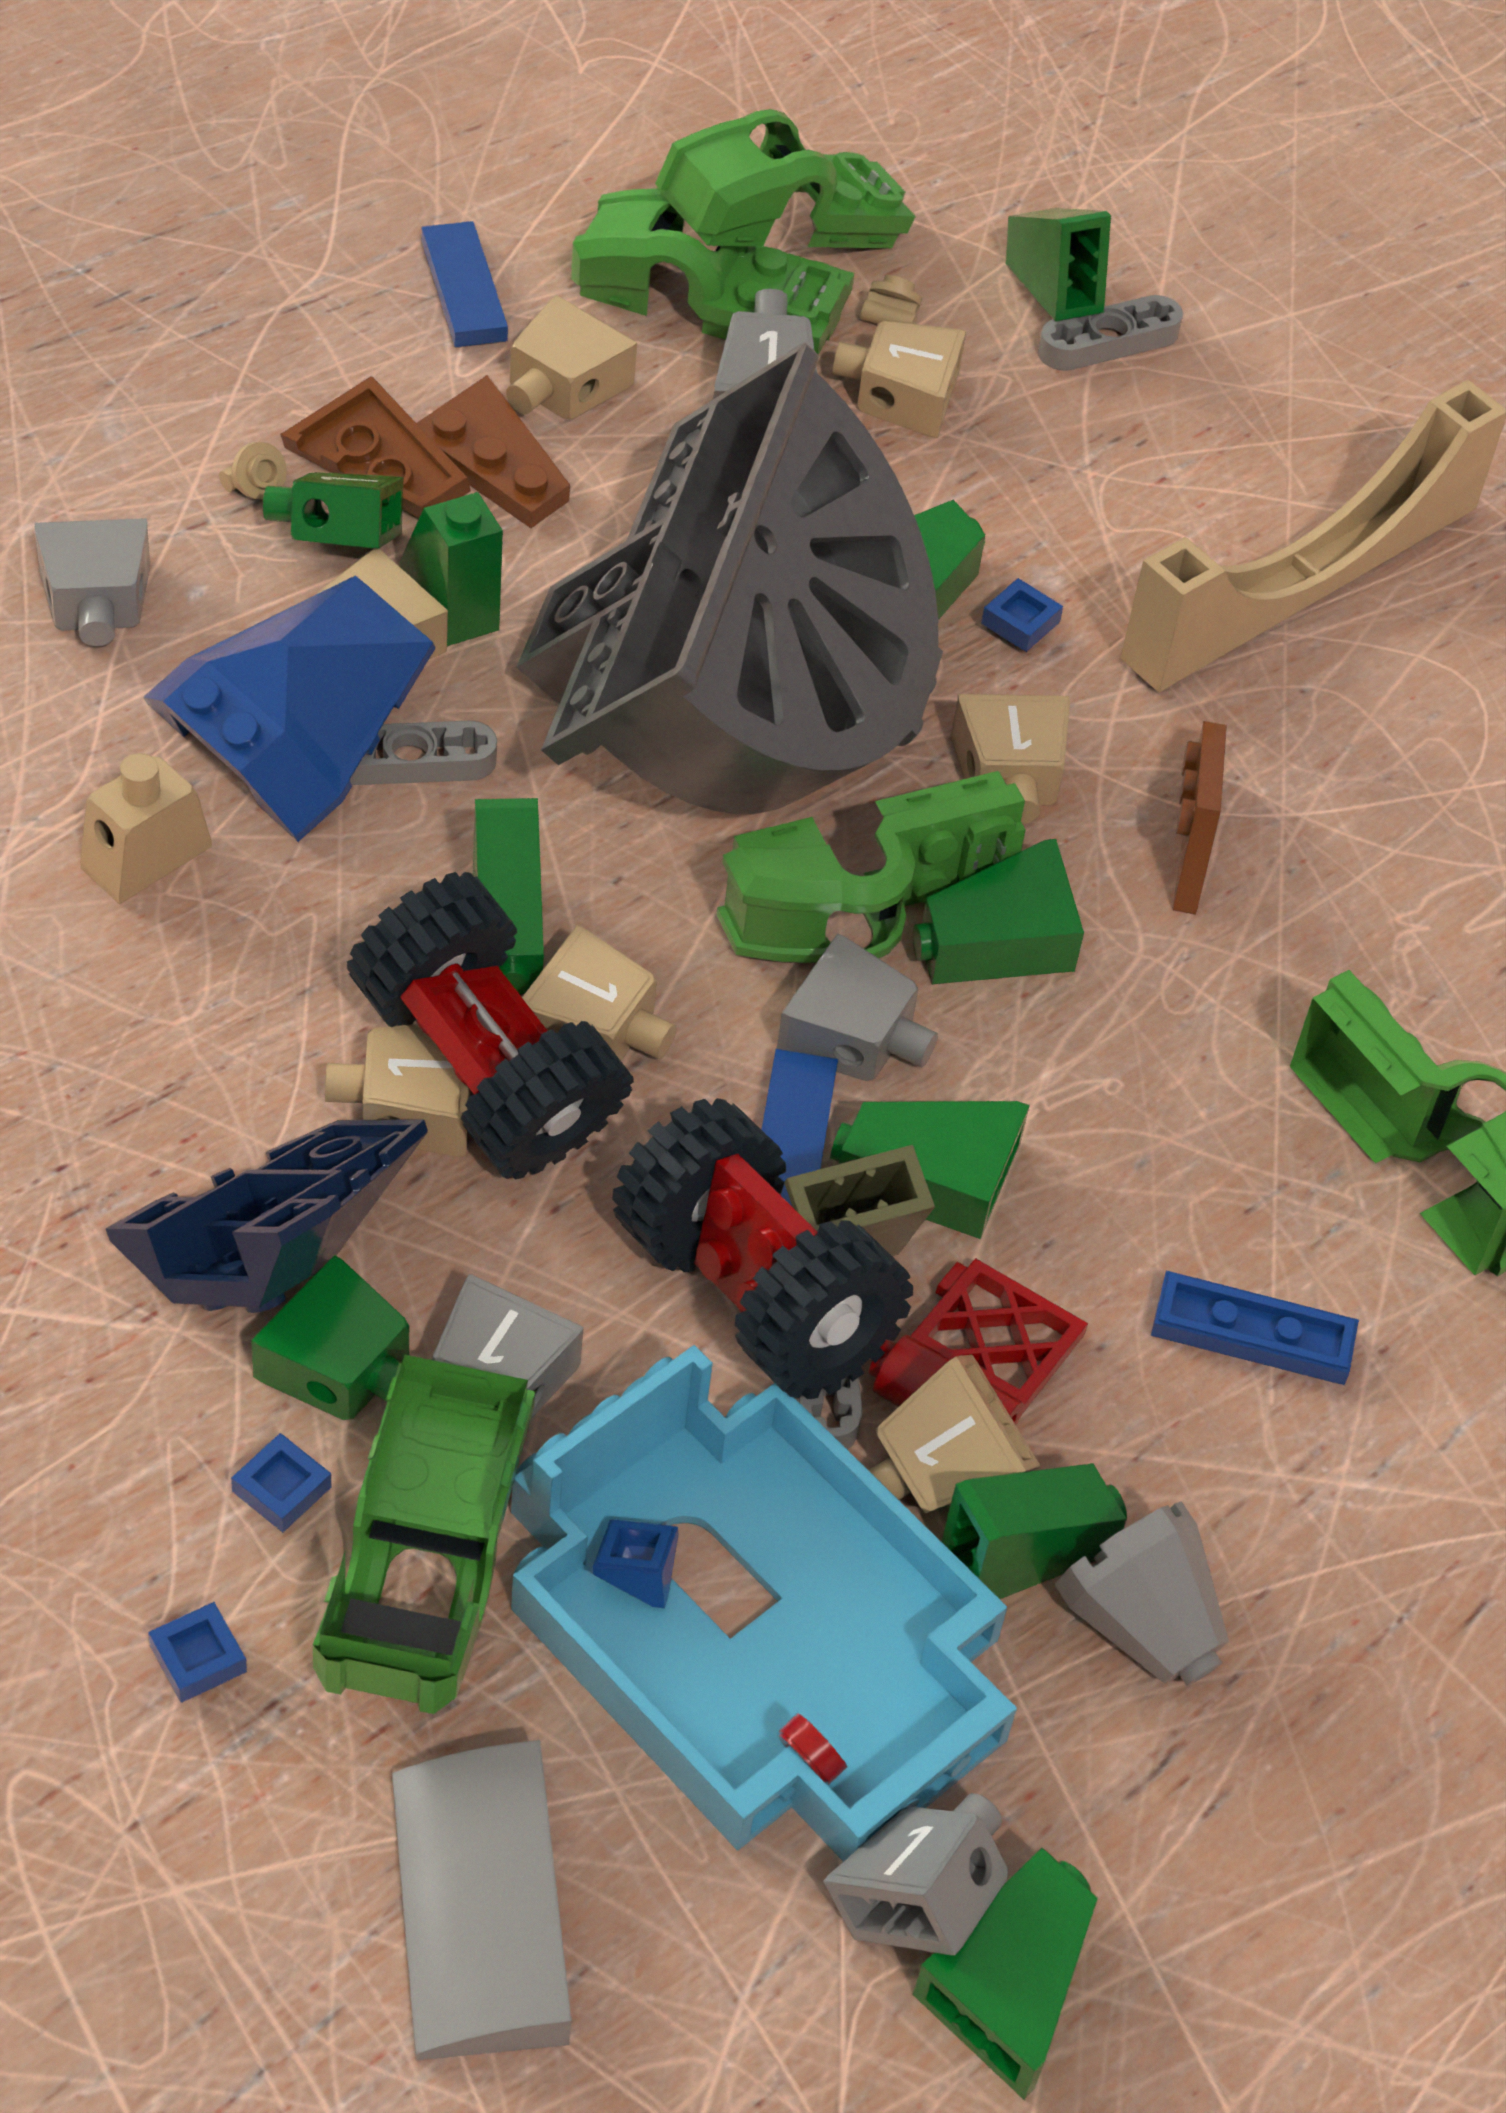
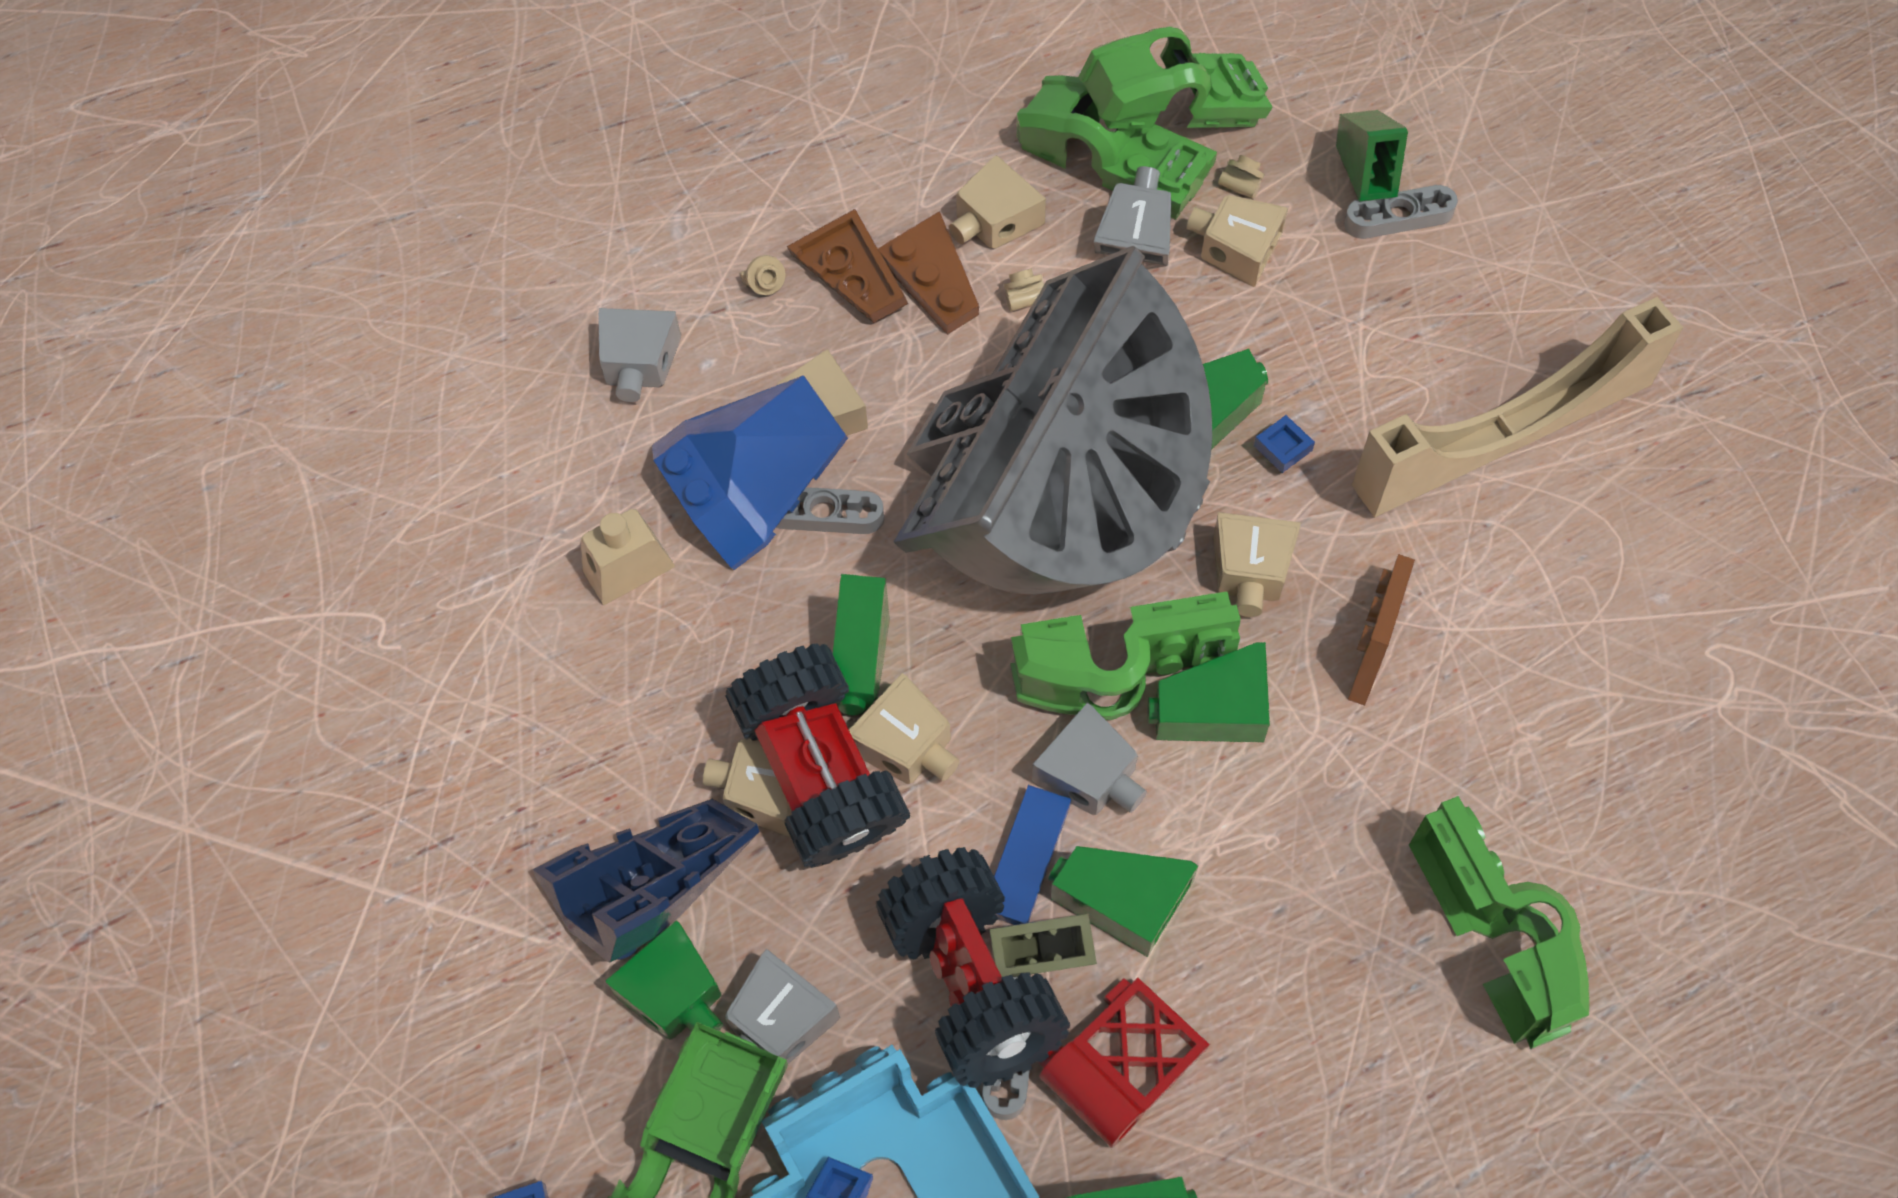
camera: 20 degrees right, 10 degrees up
(281, 1482) = (609, 1088): blue plate -> none
(360, 507) = (811, 314): green torso -> none
(459, 563) = (879, 373): green slope -> none
(464, 284) = (940, 135): blue tile -> none
(627, 461) = (1022, 289): none -> tan plate
(949, 1434) = (1082, 1143): tan torso -> none
(1255, 1327) = (1336, 1065): blue tile -> none

